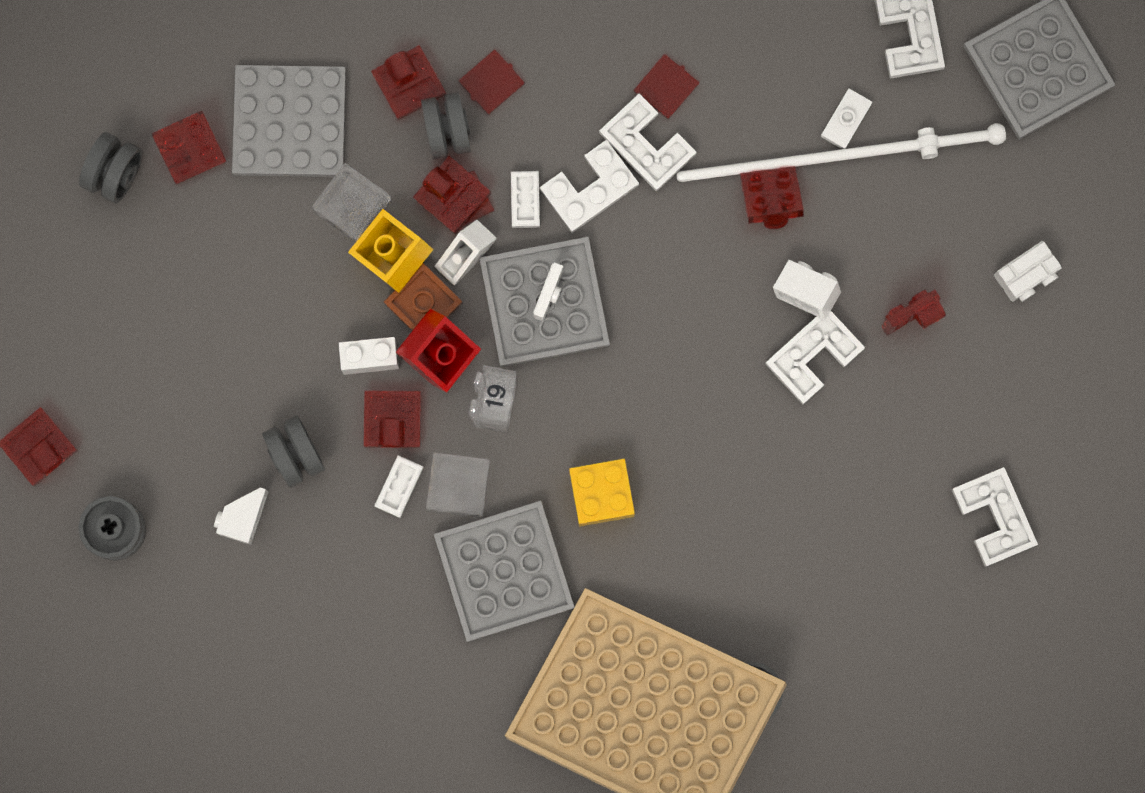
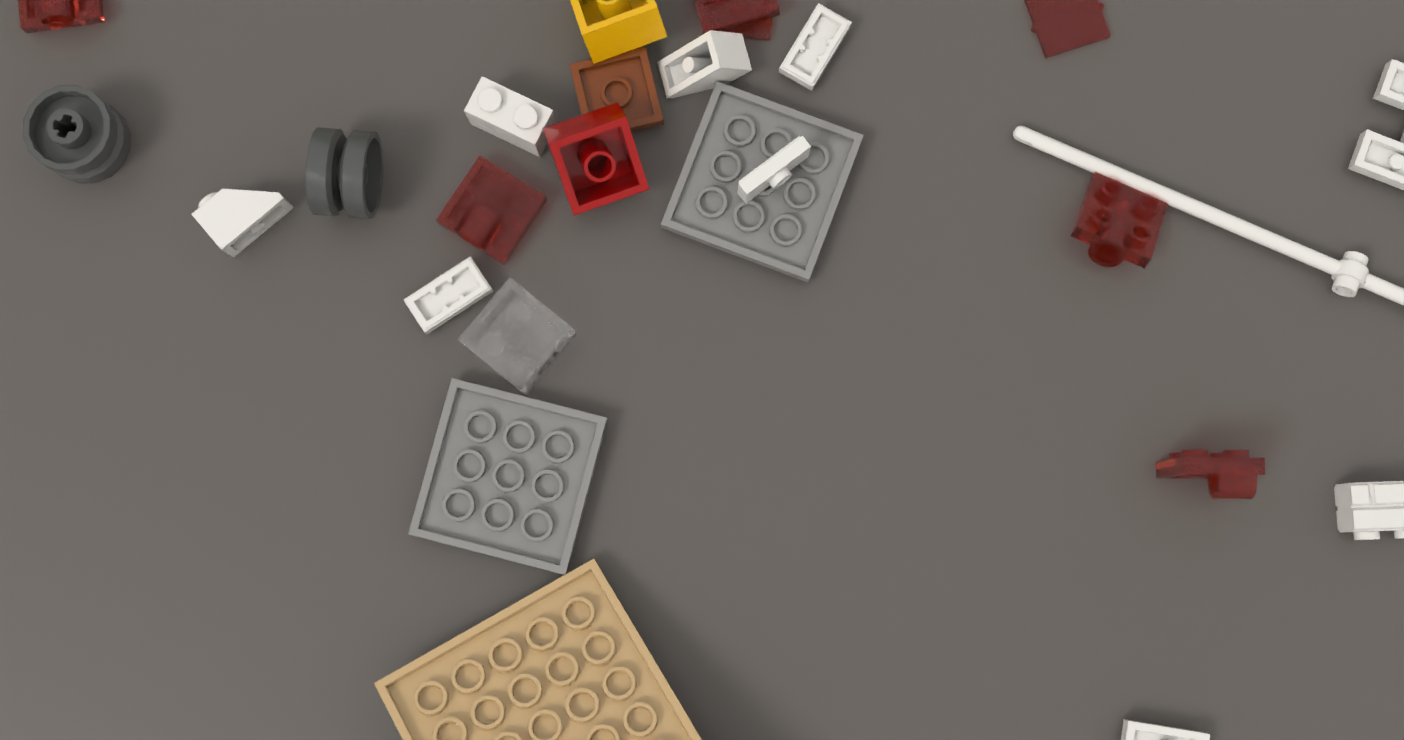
camera: 30 degrees right, 0 degrees up
(495, 398) = (626, 257): clear brick -> none
(579, 208) = (929, 94): white plate -> none
(601, 492) = (686, 453): yellow brick -> none
(625, 137) = (981, 47): white plate -> none
(791, 359) = (1078, 424): white plate -> none
(807, 289) = (1095, 360): white brick -> none
(846, 119) = (1265, 185): white plate -> none

